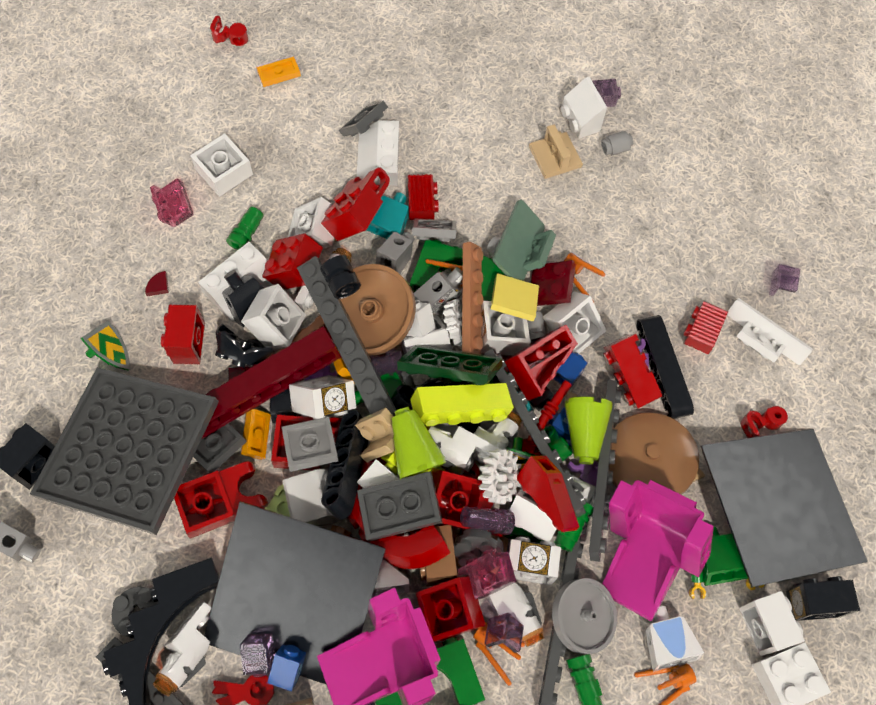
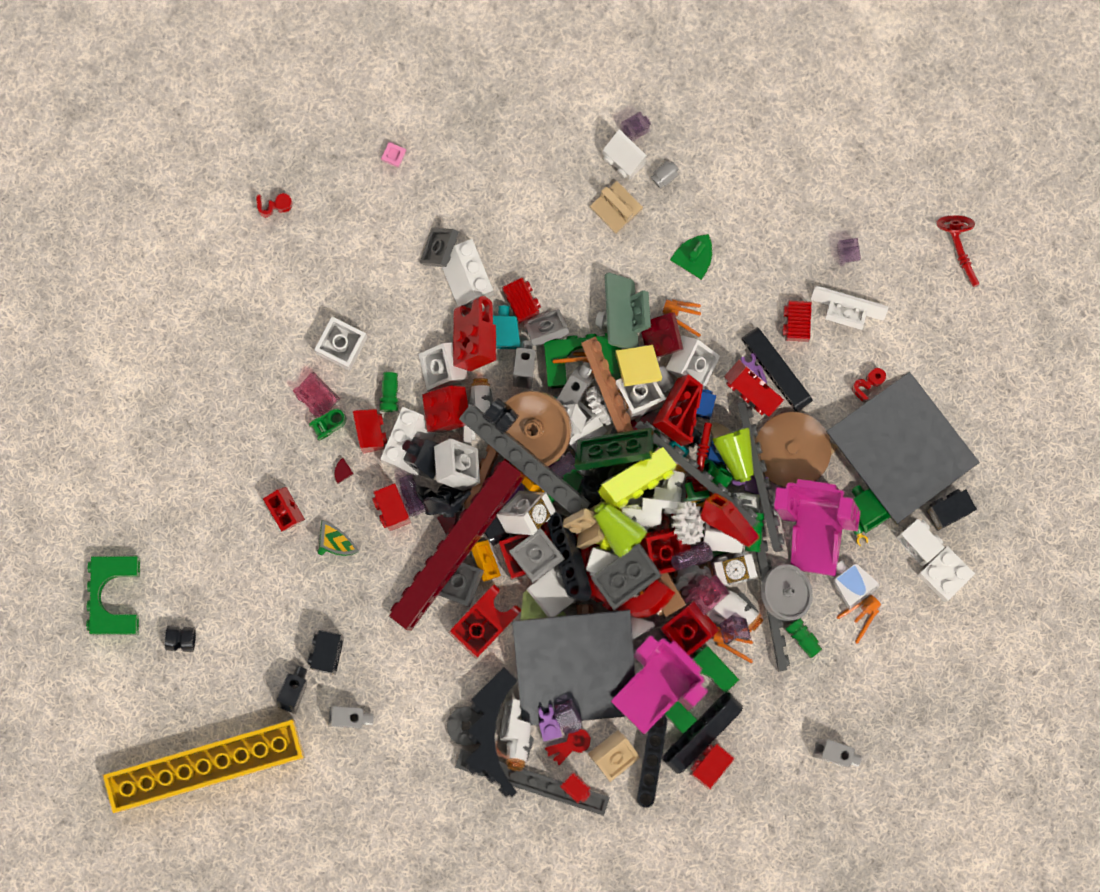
camera: 20 degrees left, 15 degrees up
(74, 292) = (283, 509): none -> red brick
(125, 449) = (399, 615): dark grey plate -> none
(168, 234) = (327, 424): none -> green piece
(202, 250) = (369, 430): none -> red slope
(209, 342) = (413, 503): none -> clear purple axle
(230, 655) = (549, 726): none -> medium lavender plate
(278, 71) = (339, 226): light orange plate -> none
(286, 667) = (592, 717): brick -> none
(362, 34) = (393, 154): none -> bright pink plate
(617, 227) = (694, 255): none -> green shield

